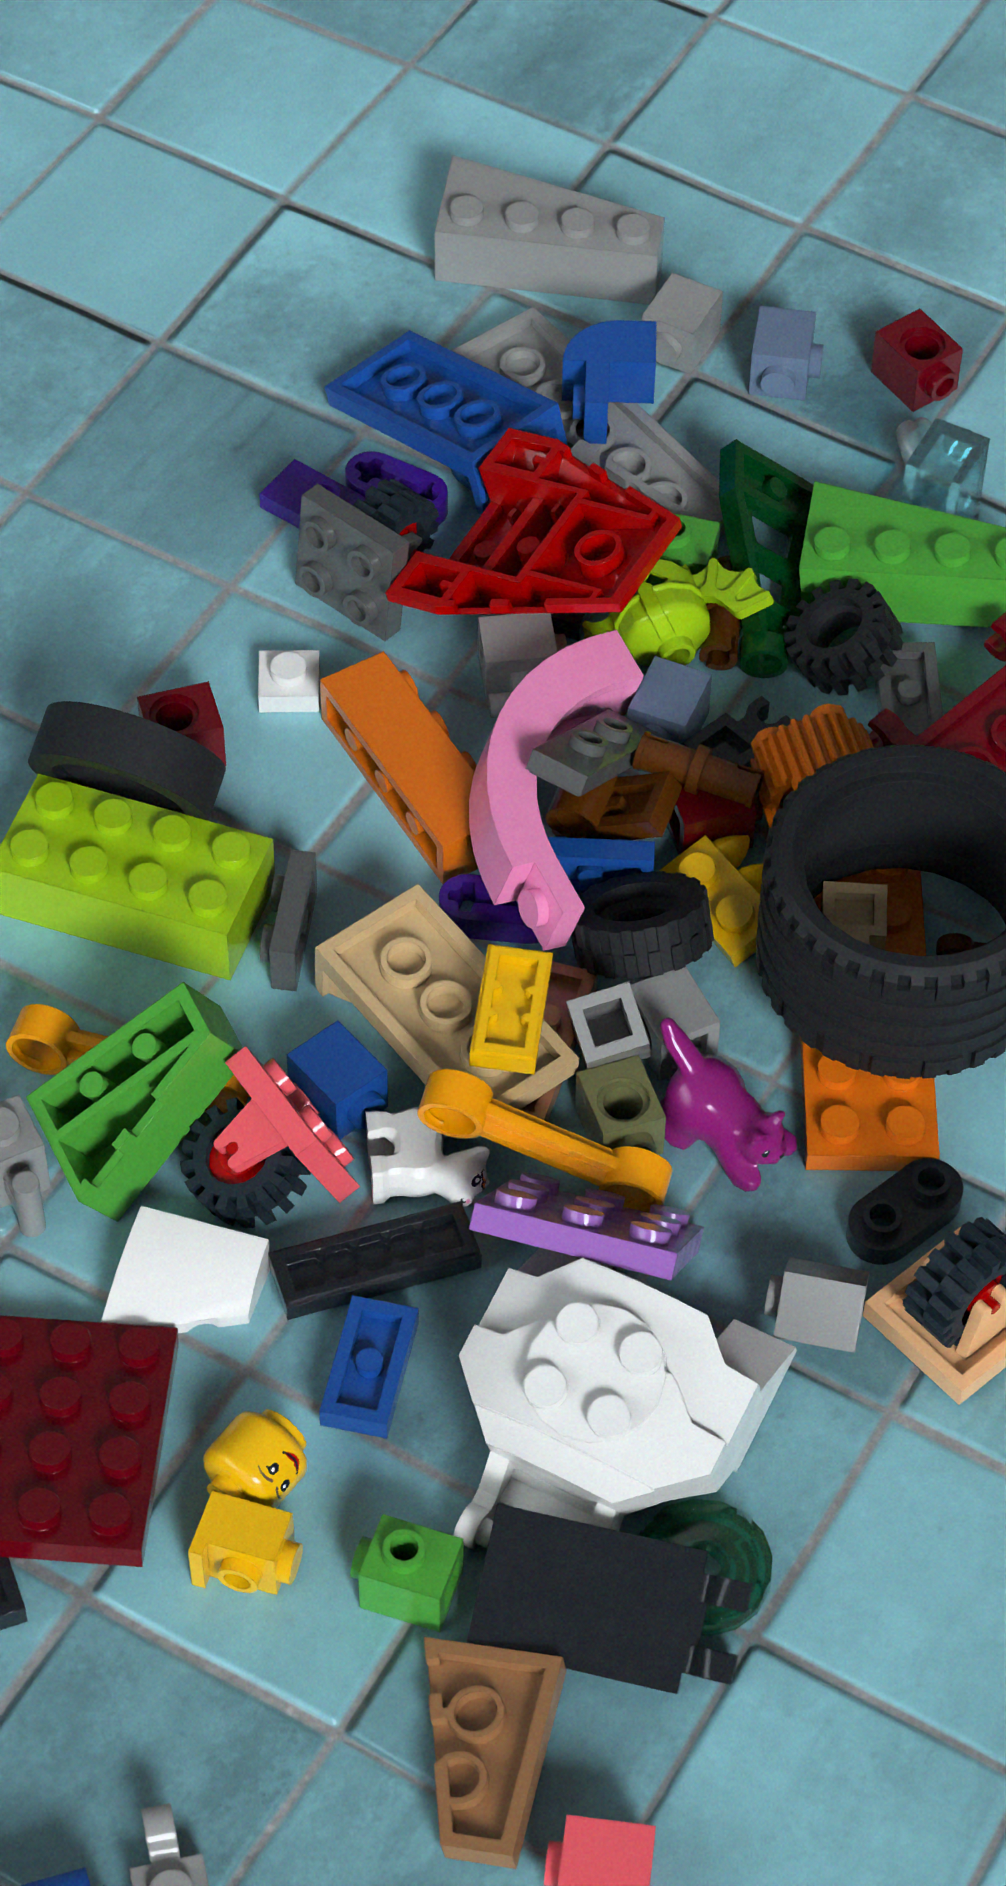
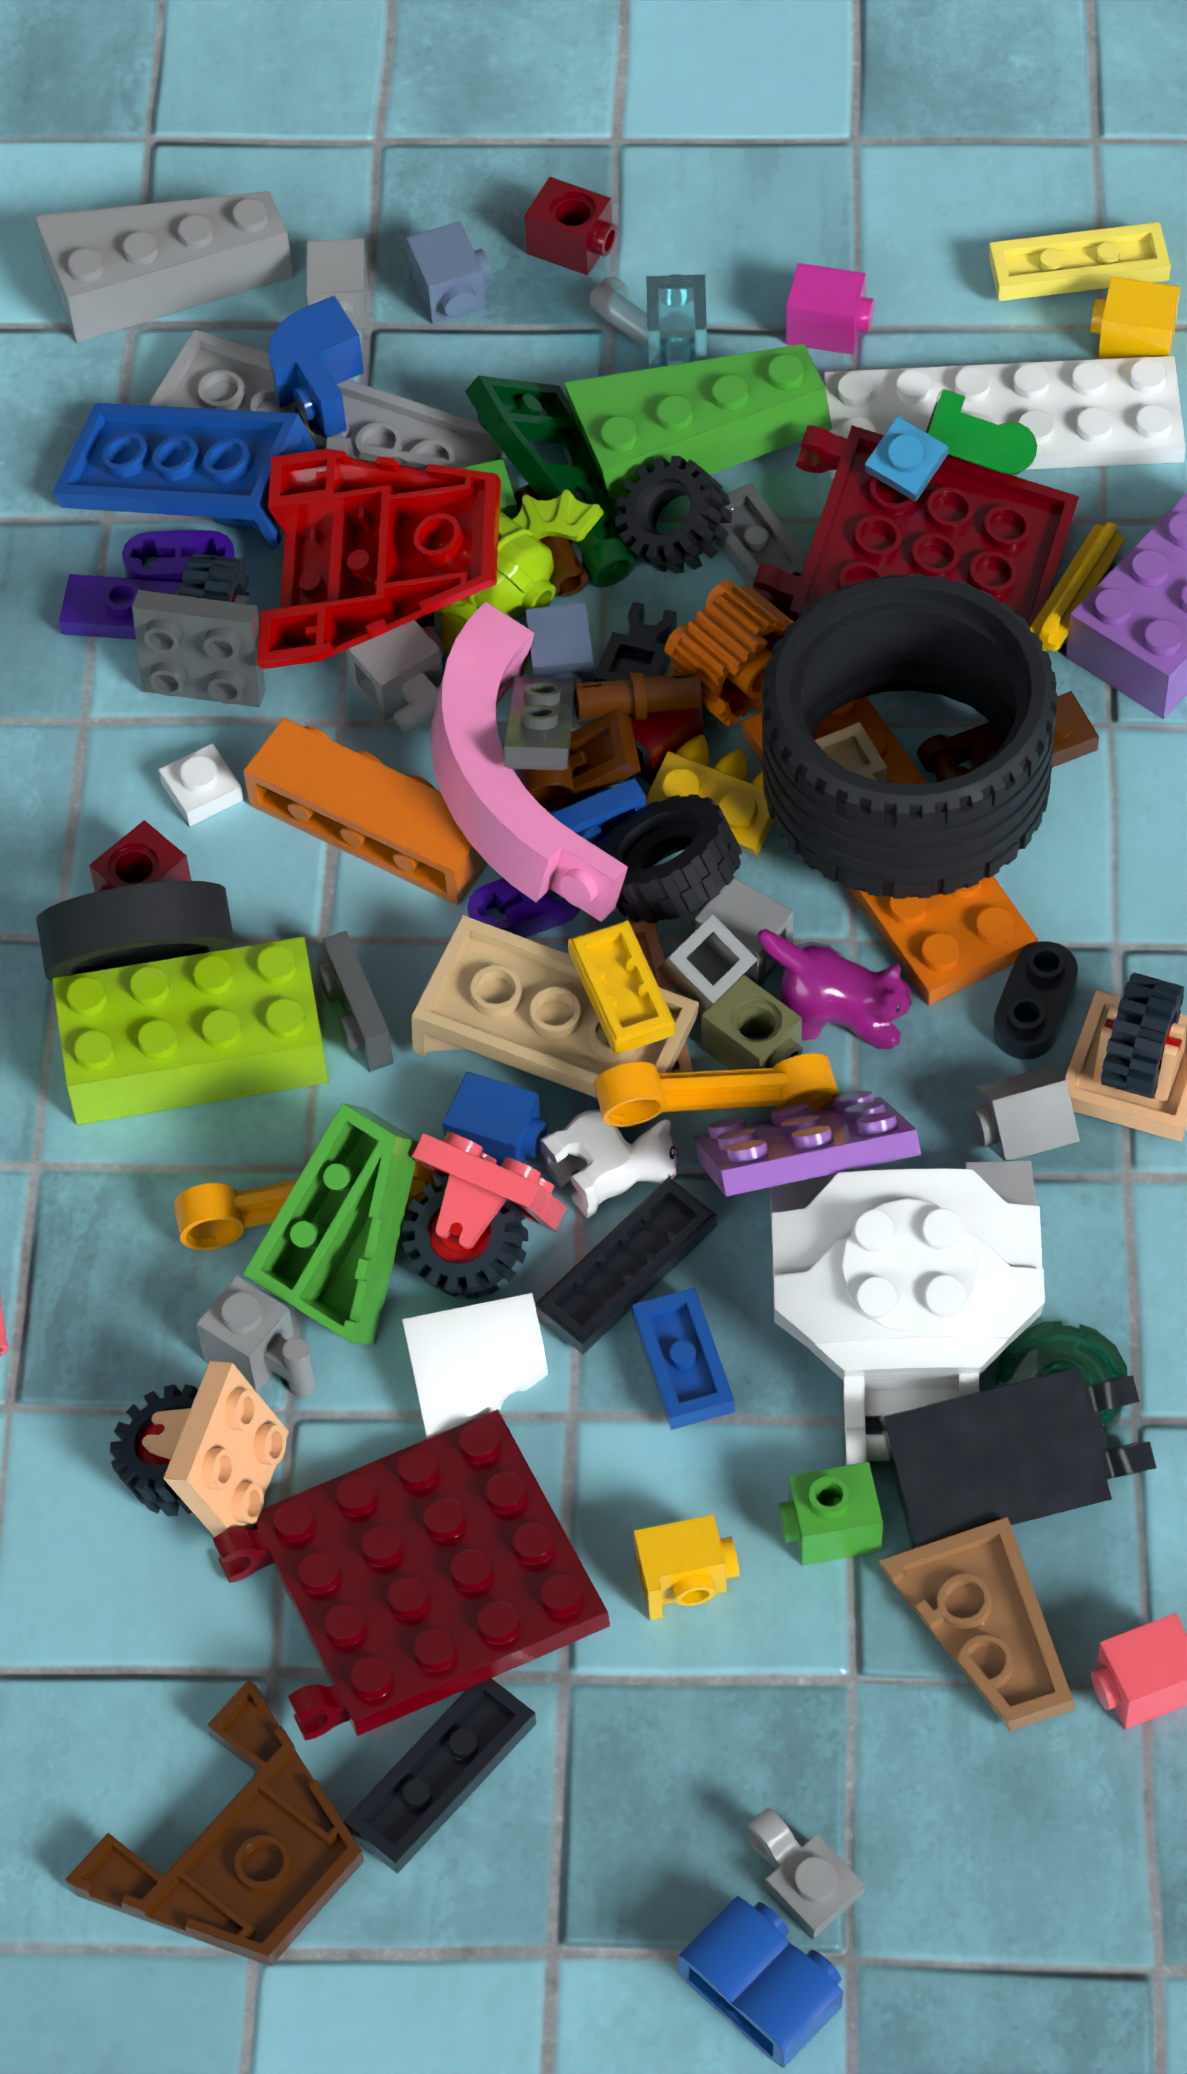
camera: 25 degrees left, 5 degrees up
(257, 1458) = (645, 1485): yellow head -> none

